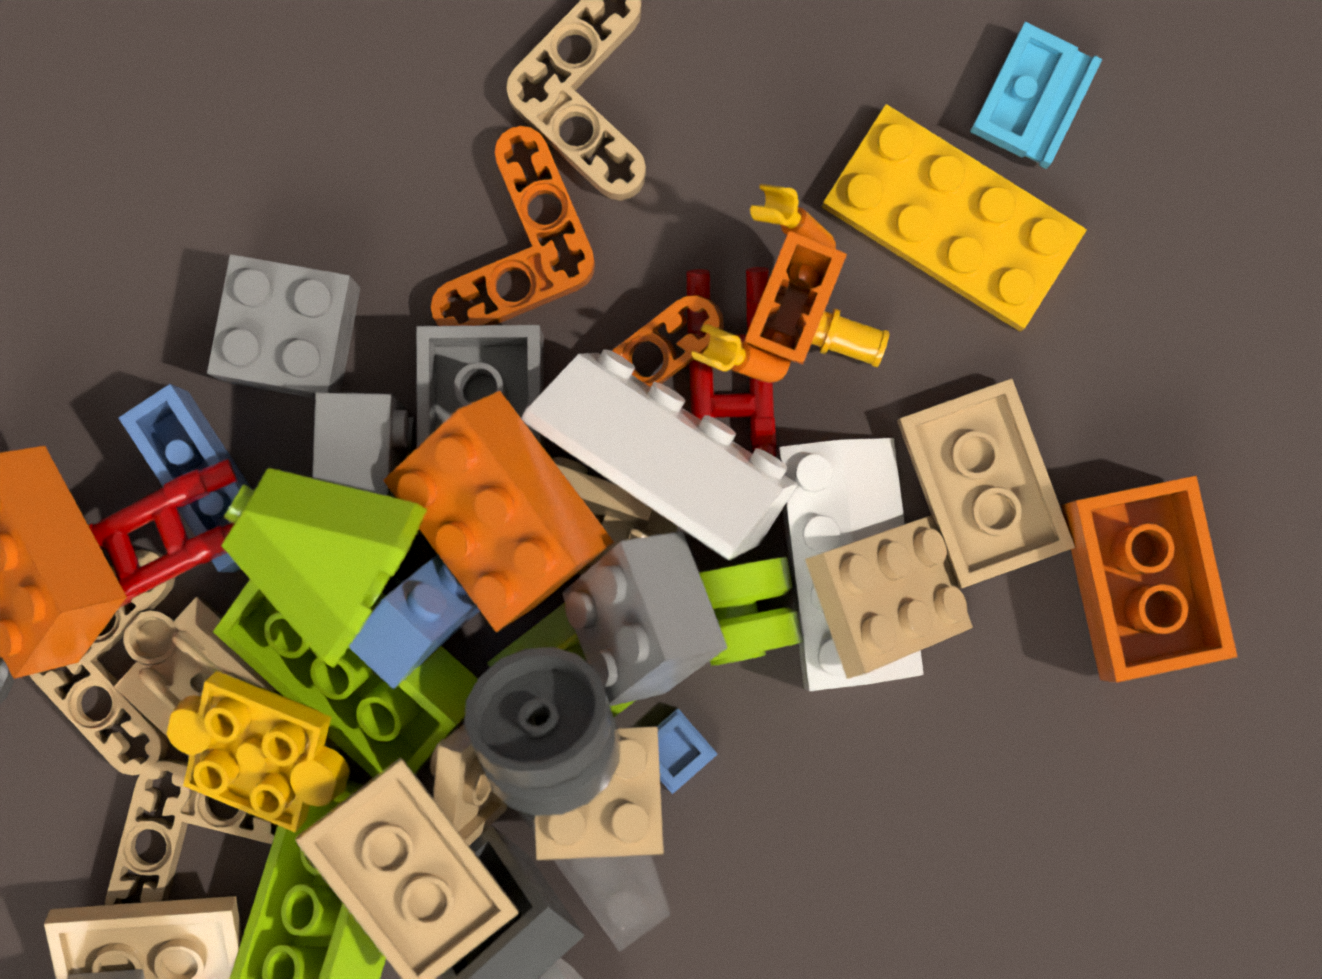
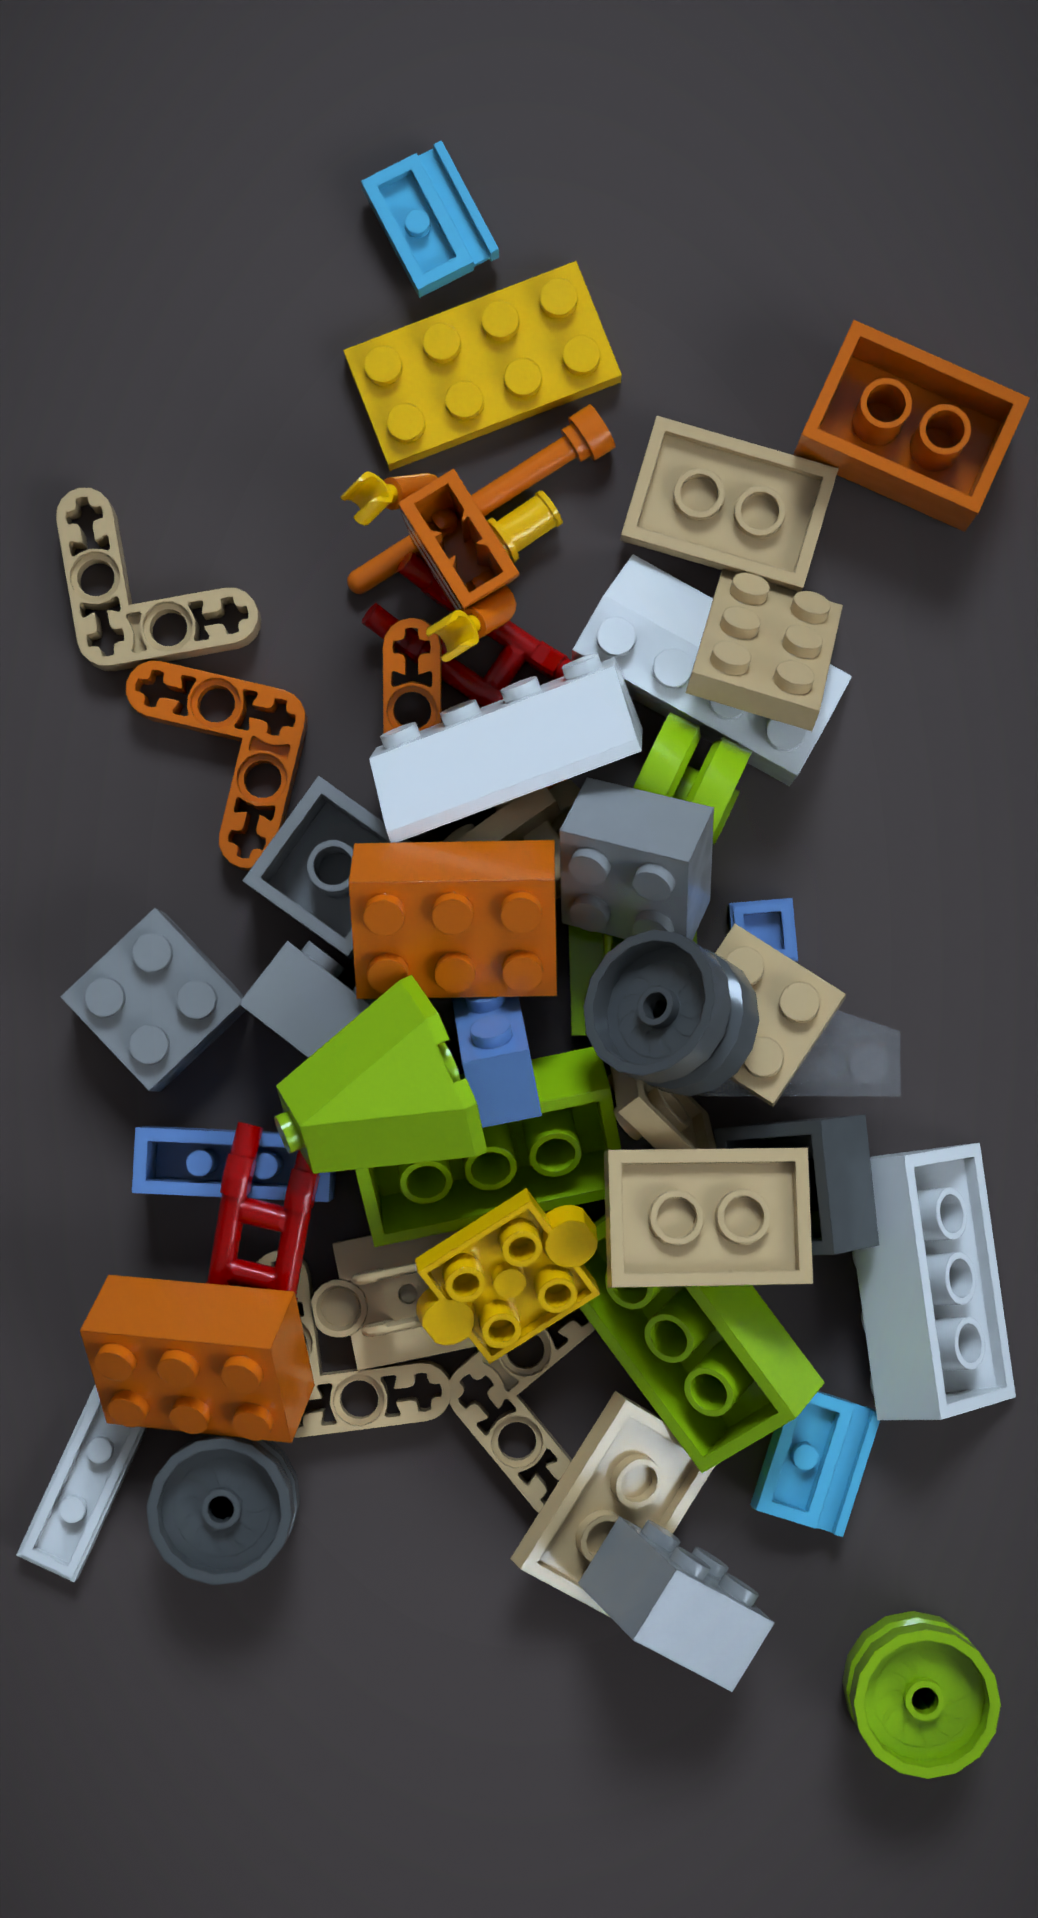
camera: 45 degrees left, 0 degrees up
(953, 334) = (581, 439): none -> orange piece

